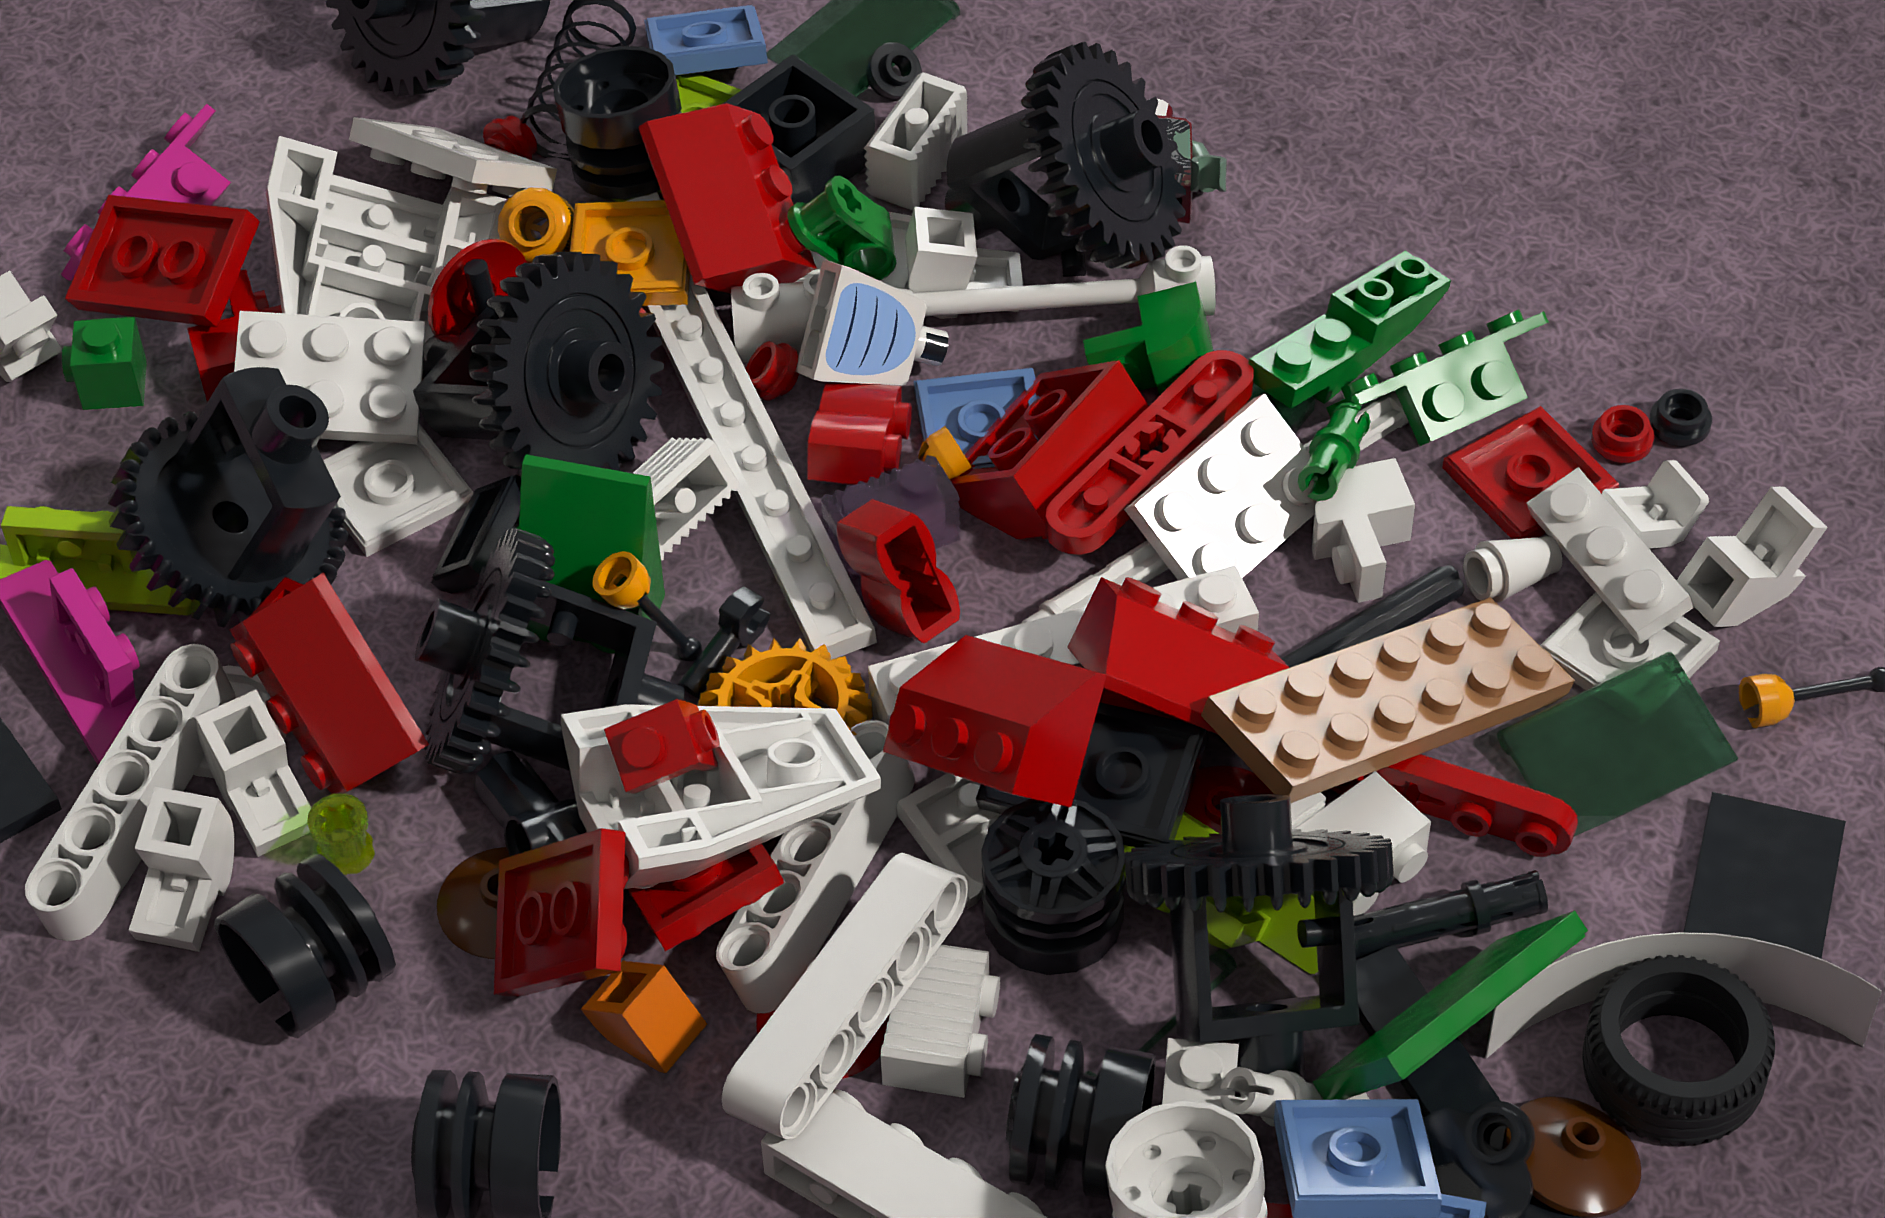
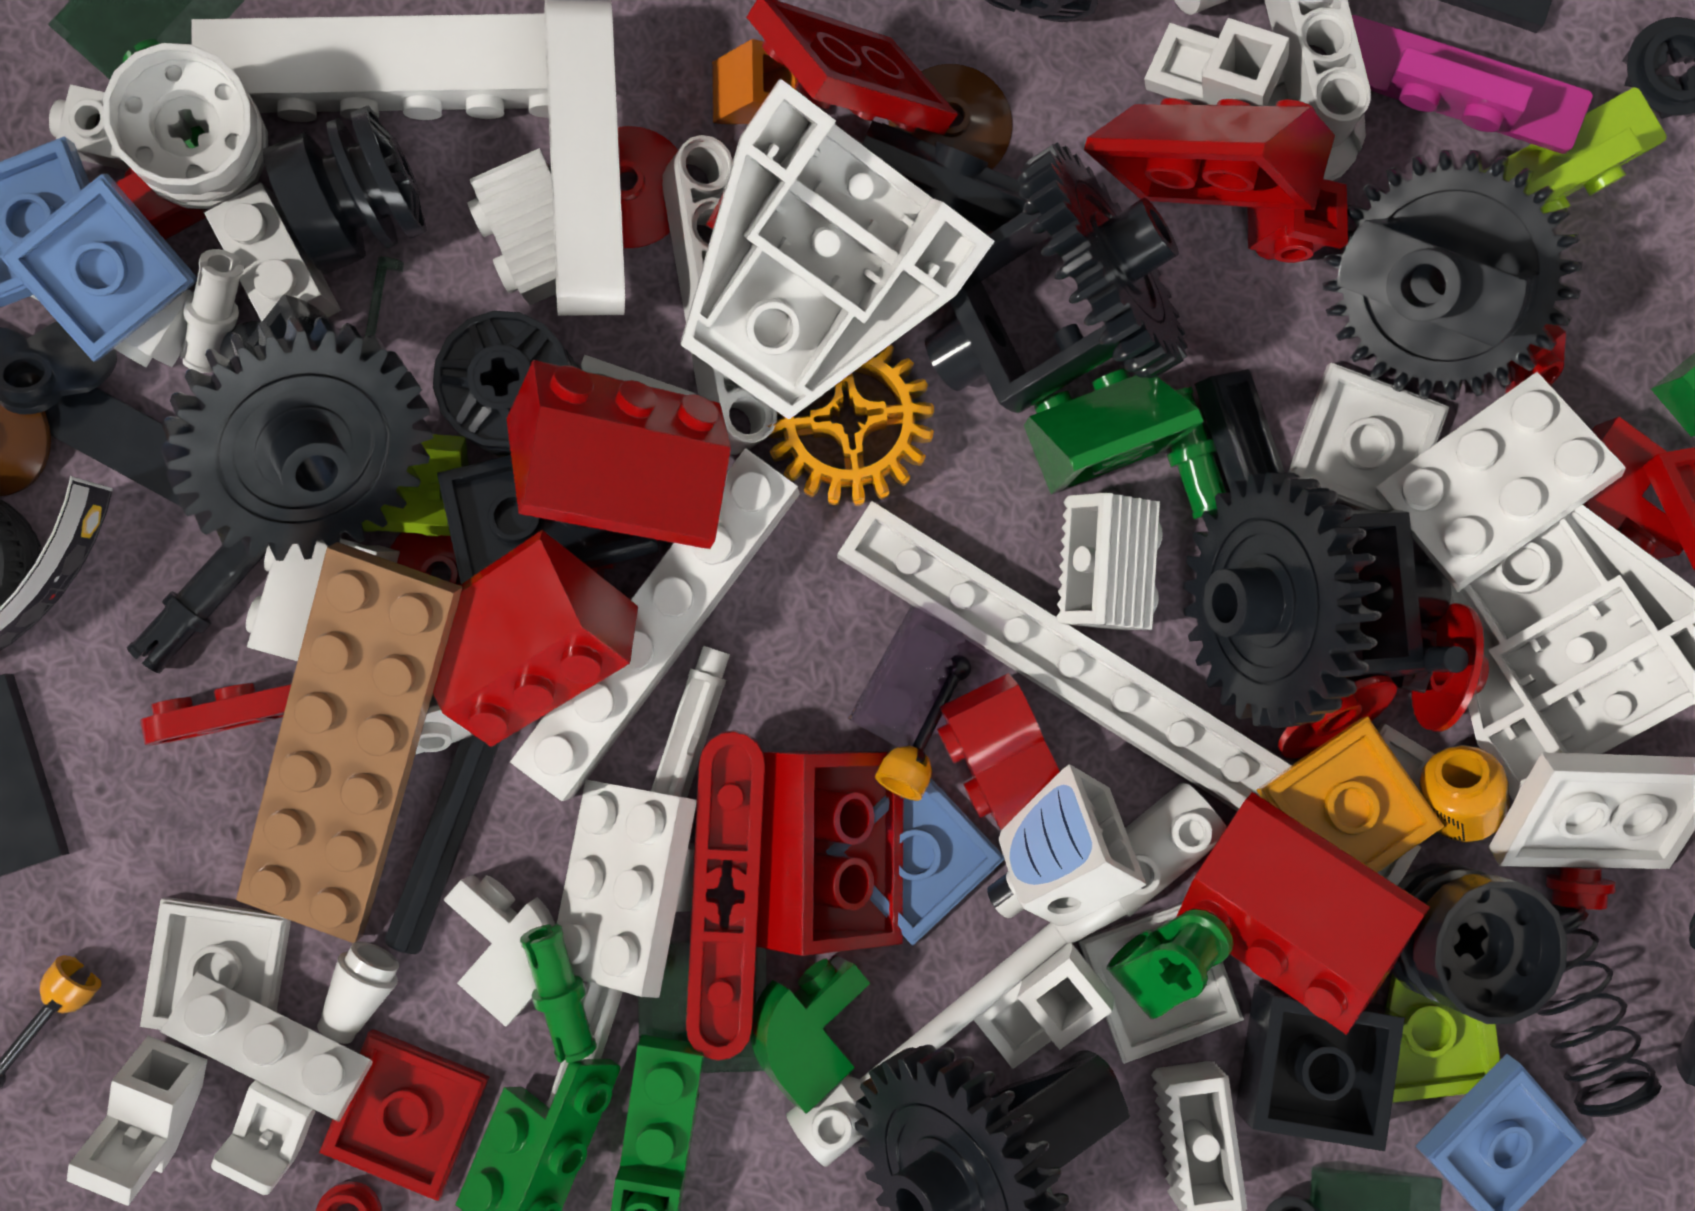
camera: 145 degrees right, 35 degrees up
(342, 832) = (1127, 66): clear neon green bush -> none
(633, 593) = (1035, 396): light orange hinge -> none
(663, 744) = (873, 246): red bracket -> none
(740, 624) = (957, 477): black bar -> none
(773, 369) = (1134, 781): red plate -> none
(898, 570) = (845, 602): red brick -> none
(1450, 1008) = (103, 461): green tile -> none
(1620, 743) = (163, 855): clear green piece -> none

